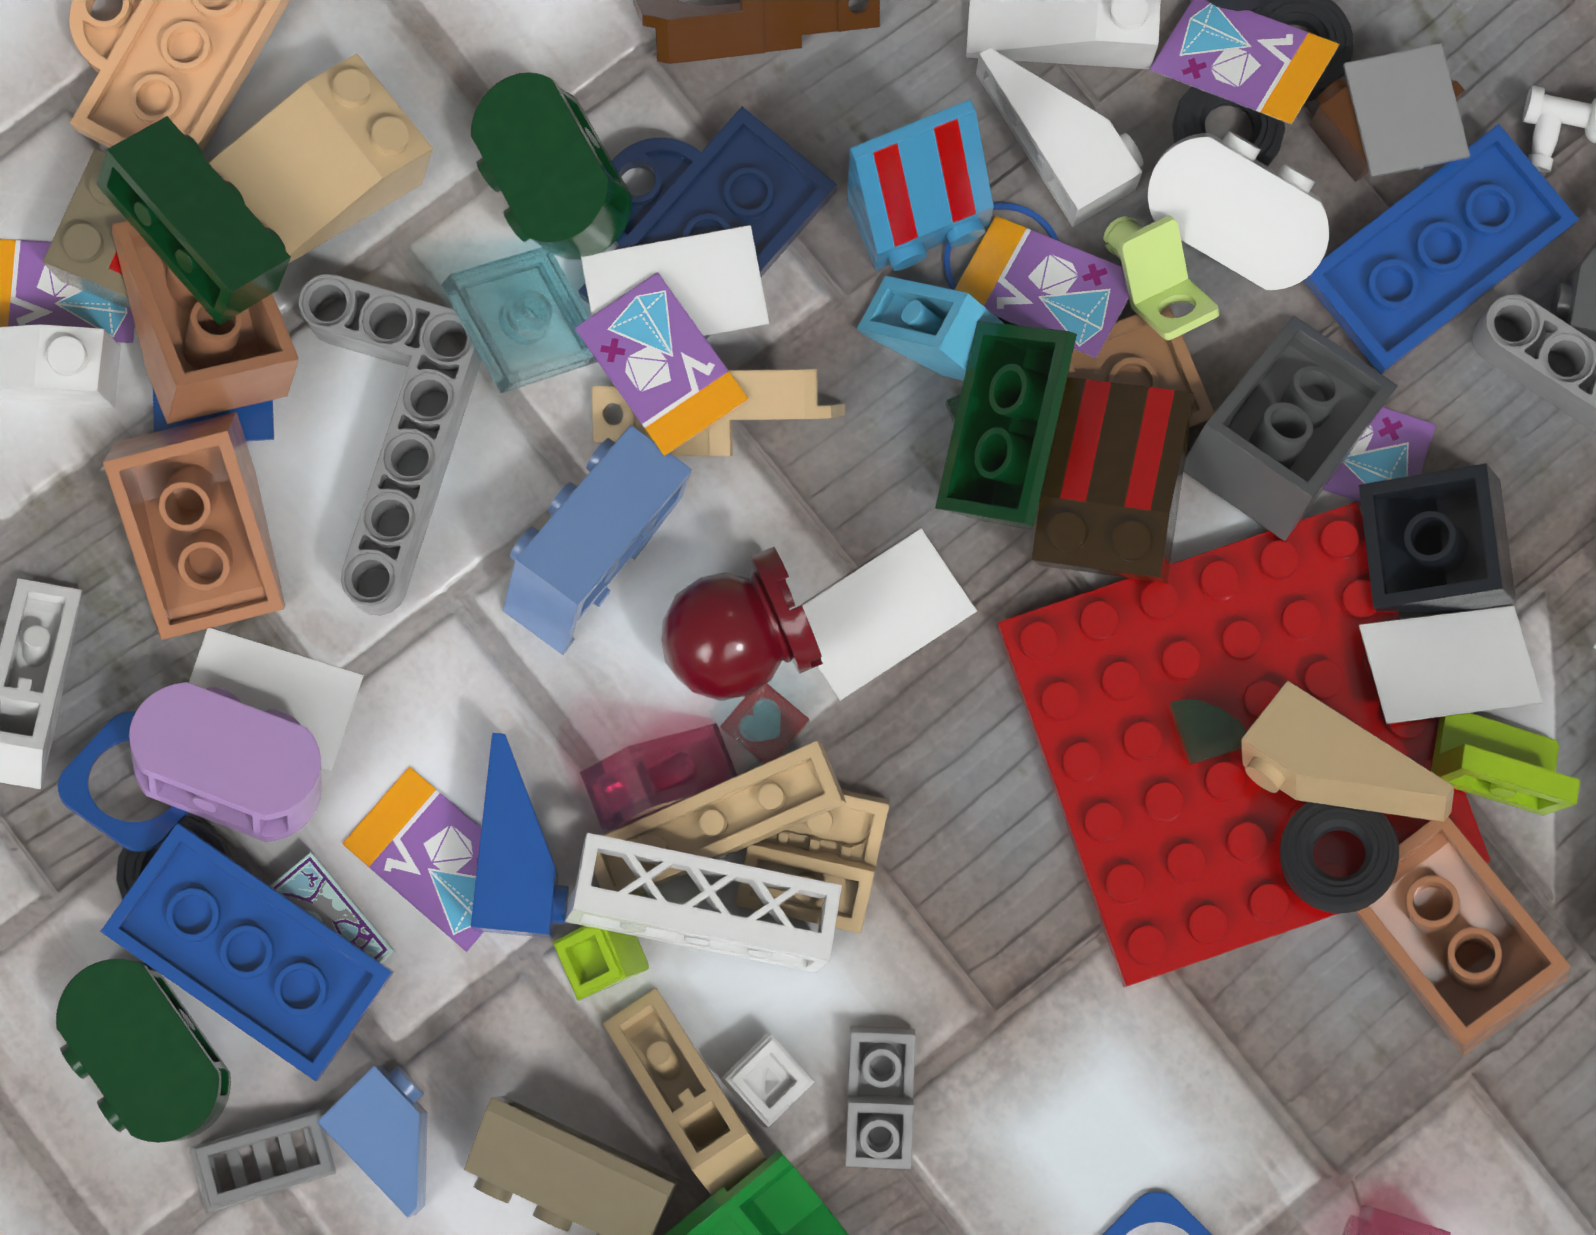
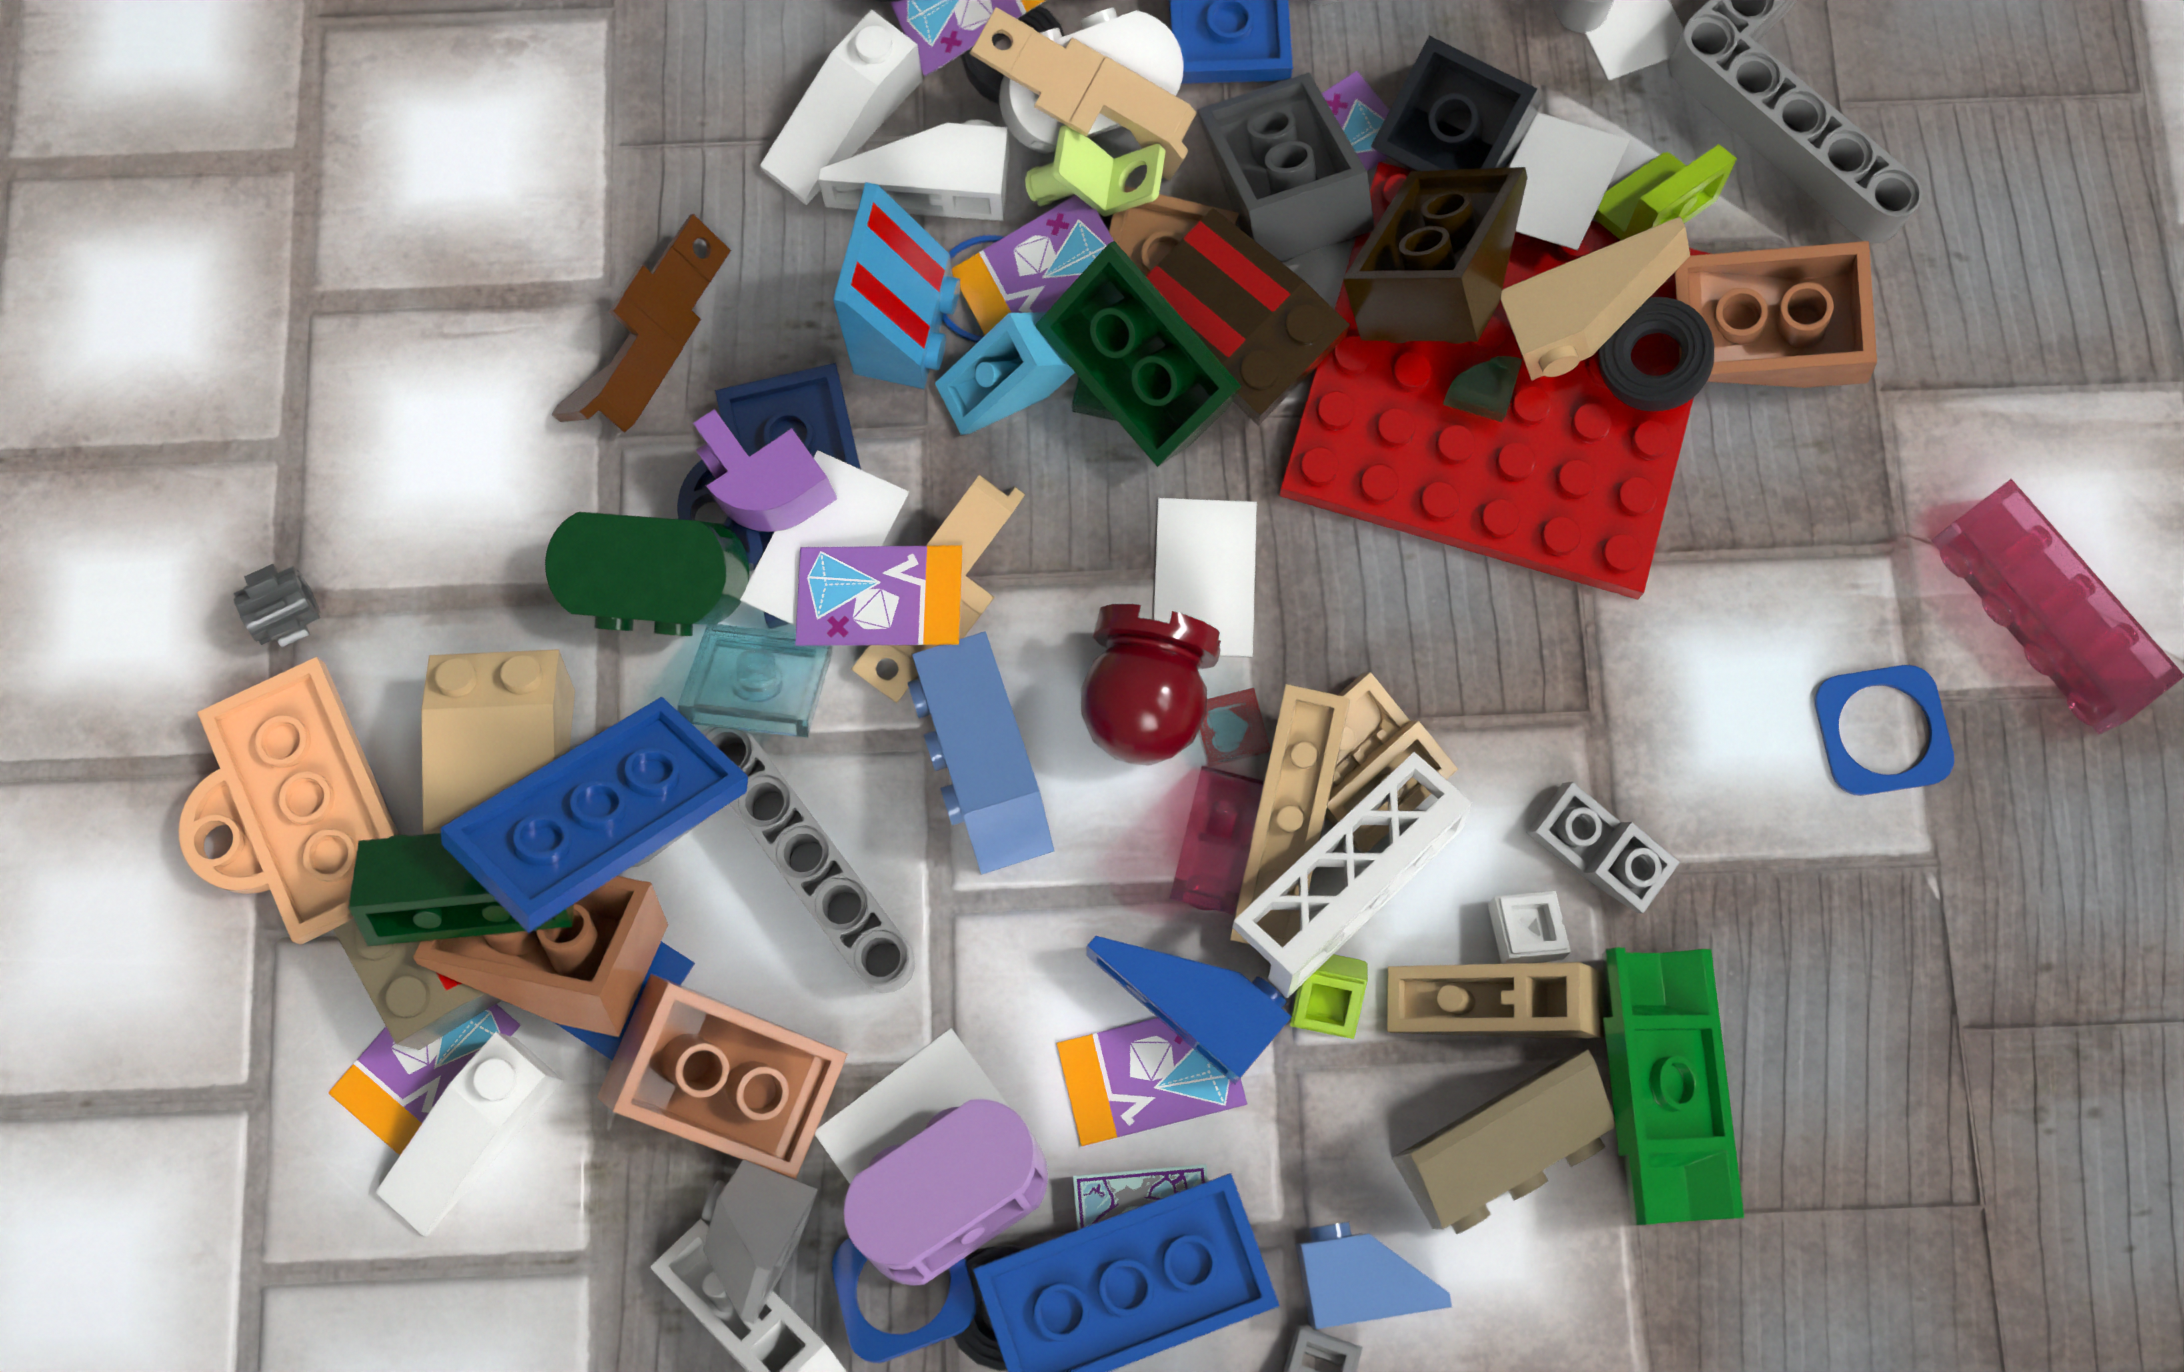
camera: 55 degrees left, 5 degrees down
(93, 638) = (754, 1232): none -> light grey slope
(313, 276) = (593, 812): none -> blue plate
(679, 209) = (768, 489): none -> medium lavender brick
(1220, 205) = (1081, 83): none -> tan piece
(1285, 608) = (1437, 256): none -> dark brown slope

